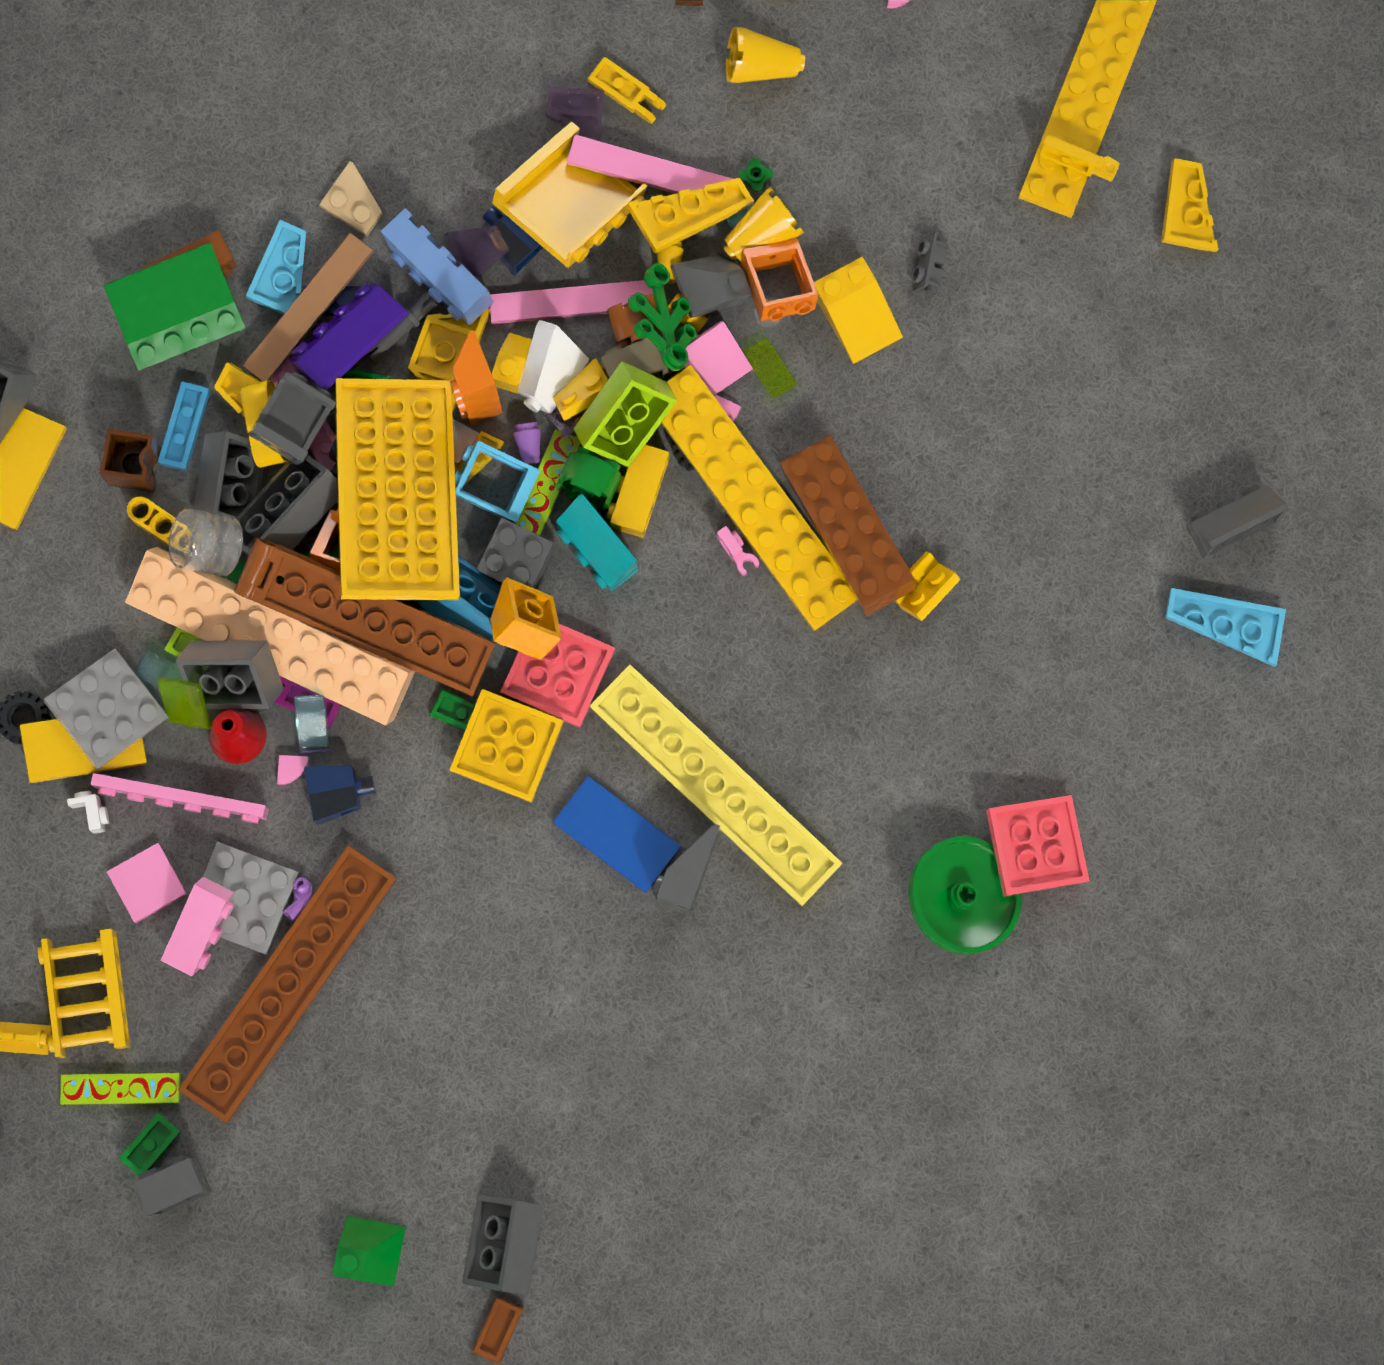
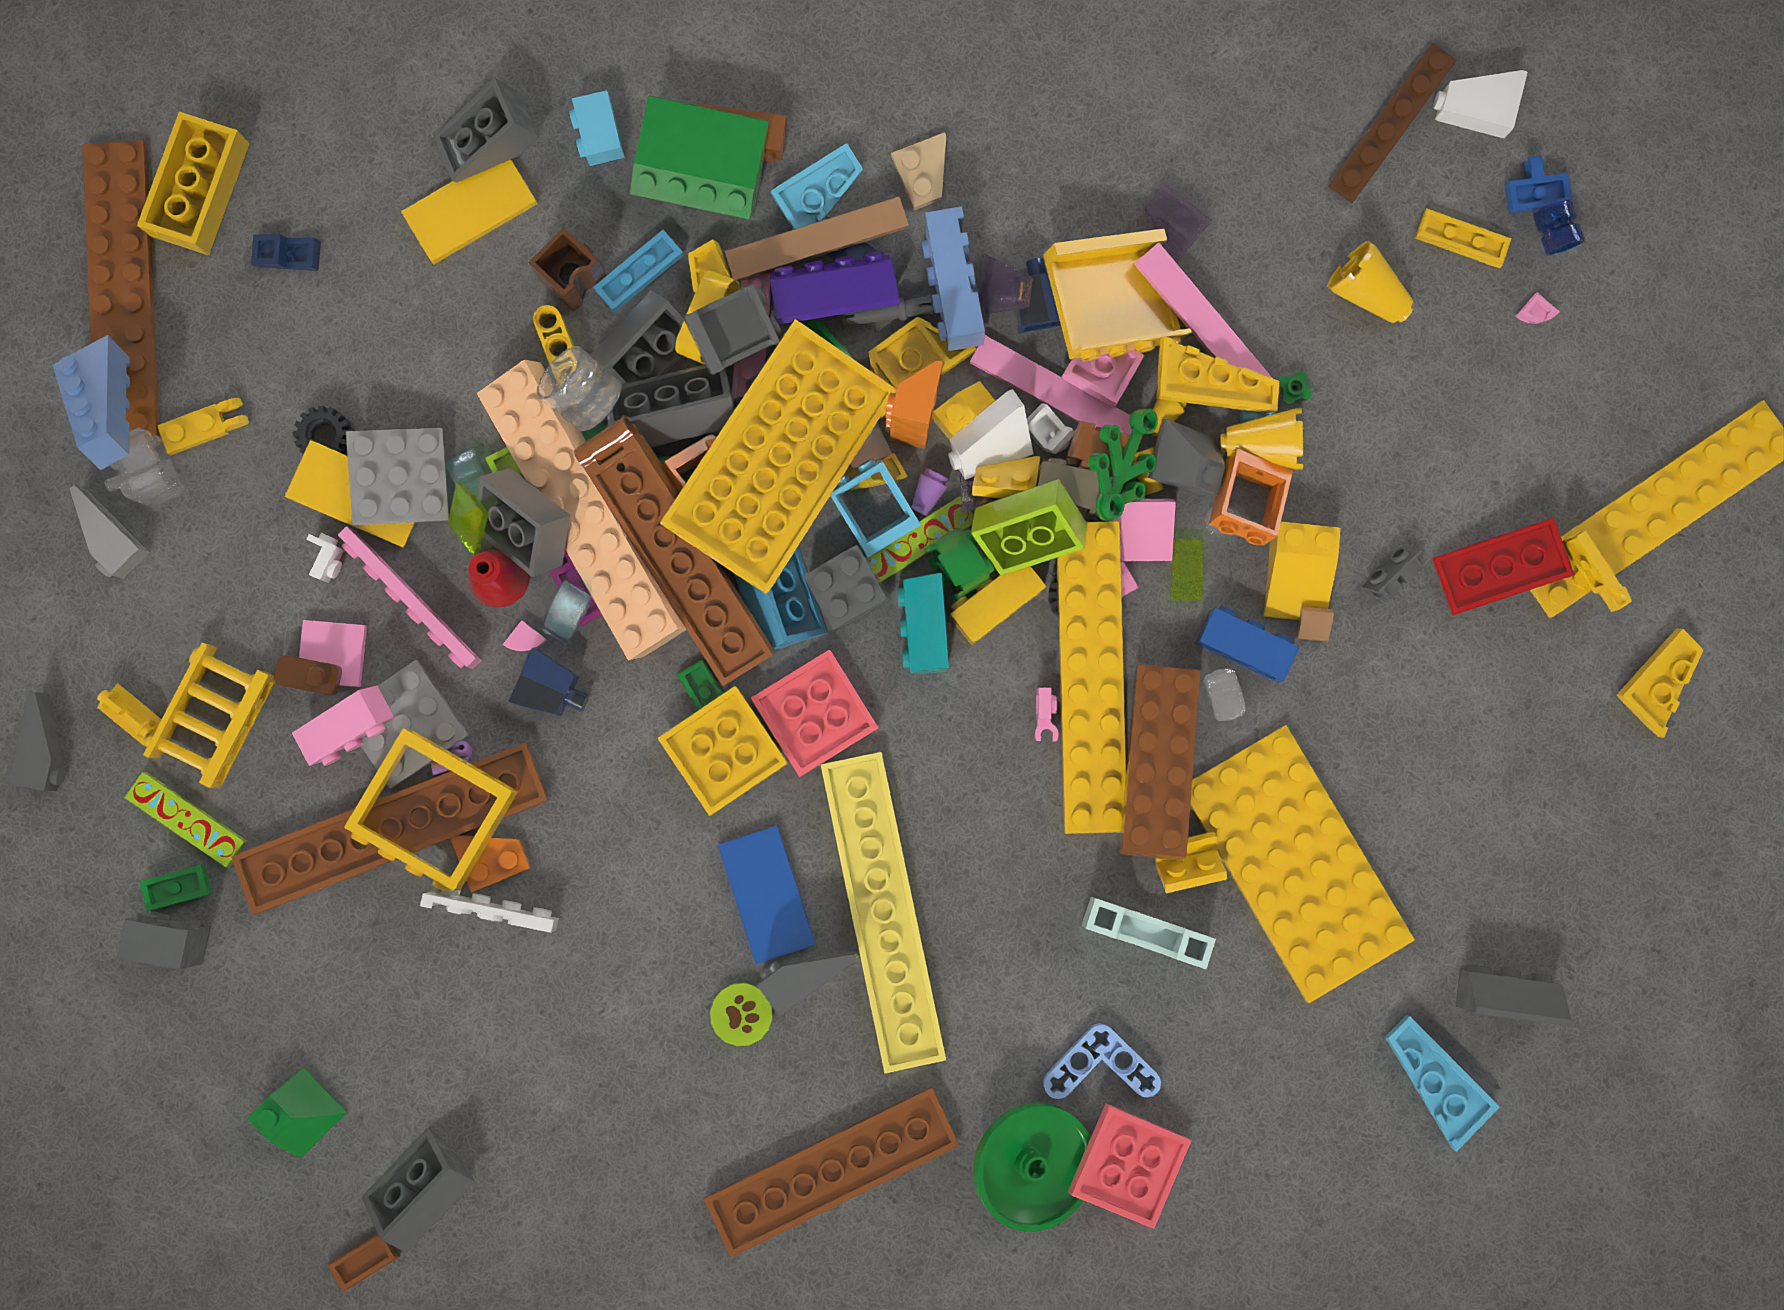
camera: 25 degrees right, 5 degrees up
(76, 338) = (597, 127): none -> medium azure brick
(141, 910) = (307, 675): none -> reddish brown piece
(327, 992) = (459, 766): none -> yellow window
(381, 955) = (497, 862): none -> orange wing
(402, 993) = (538, 919): none -> white wing
(525, 619) = (814, 651): light orange slope -> none
(589, 333) = (1049, 430): none -> white bracket
(603, 264) = (1105, 376): none -> bright pink plate
(625, 89) = (1231, 231): yellow hinge -> none
(661, 938) = (741, 1014): none -> lime tile
(813, 1009) = (831, 1171): none -> dark orange plate
(854, 392) = (1247, 644): none -> blue brick
(862, 442) = (1224, 695): none -> clear gear
(895, 342) = (1315, 623): none -> medium nougat tile
(916, 665) = (1148, 932): none -> light aqua arch
(963, 775) = (1107, 1054): none -> light blue beam
(1007, 203) = (1503, 566): none -> red tile
(1008, 533) = (1297, 864): none -> yellow plate

